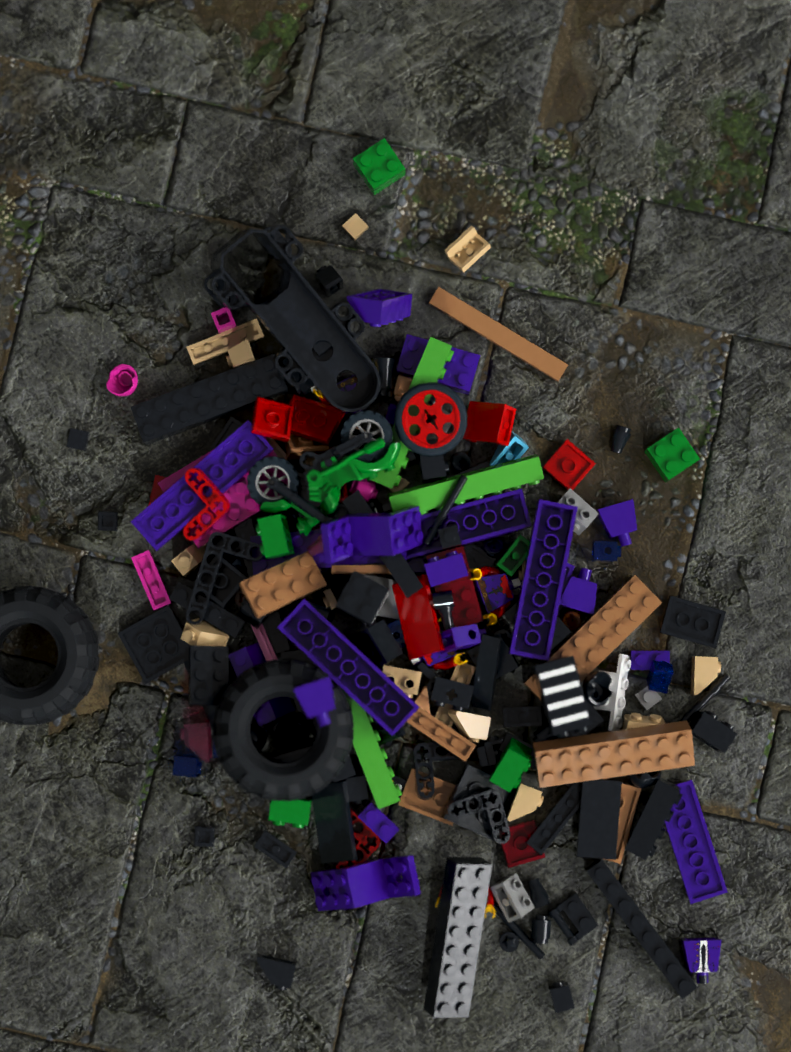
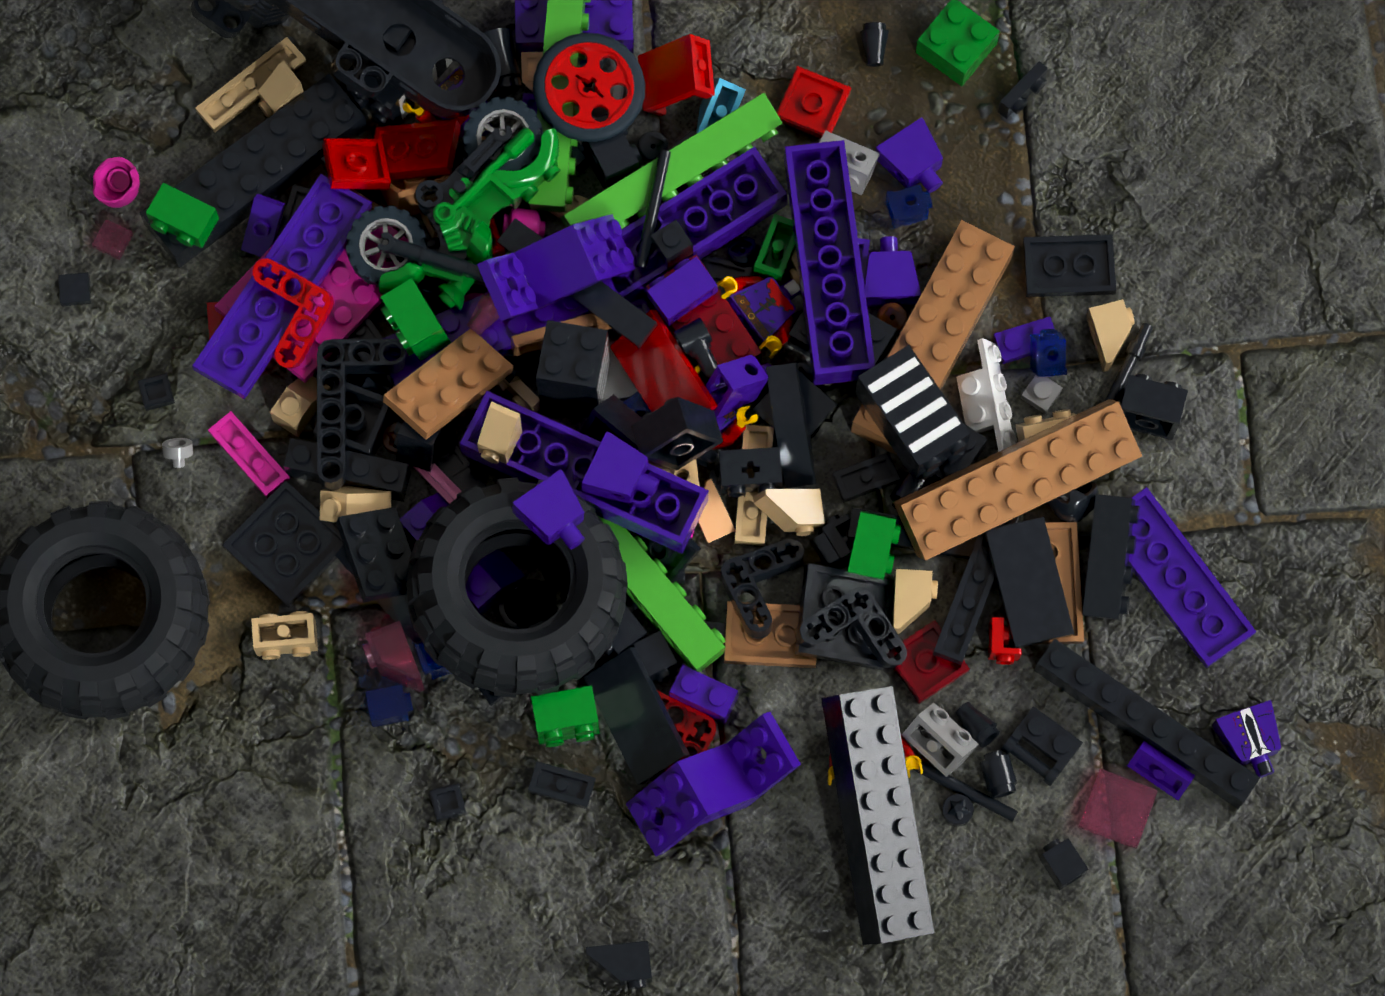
camera: 15 degrees left, 10 degrees down
(109, 564) = (177, 450): none -> light grey tile
(110, 414) = (112, 239): none -> clear pink tile
(142, 704) = (284, 635): none -> tan brick
(154, 420) = (182, 216): none -> green brick
(204, 438) = (262, 225): none -> dark purple plate
(223, 319) = (238, 51): dark pink brick -> none
(301, 634) = (499, 434): none -> tan slope
(368, 680) = (618, 472): none -> dark purple torso
(412, 662) = (677, 433): none -> black brick
(441, 734) = (753, 534): medium nougat plate -> none
(569, 844) = (997, 639): none -> red bracket
(597, 688) = (962, 392): black hair -> none
(606, 972) = (1118, 808): none -> clear pink tile
(640, 959) = (1161, 770): none -> dark purple plate
(709, 496) = (1016, 98): none -> black plate

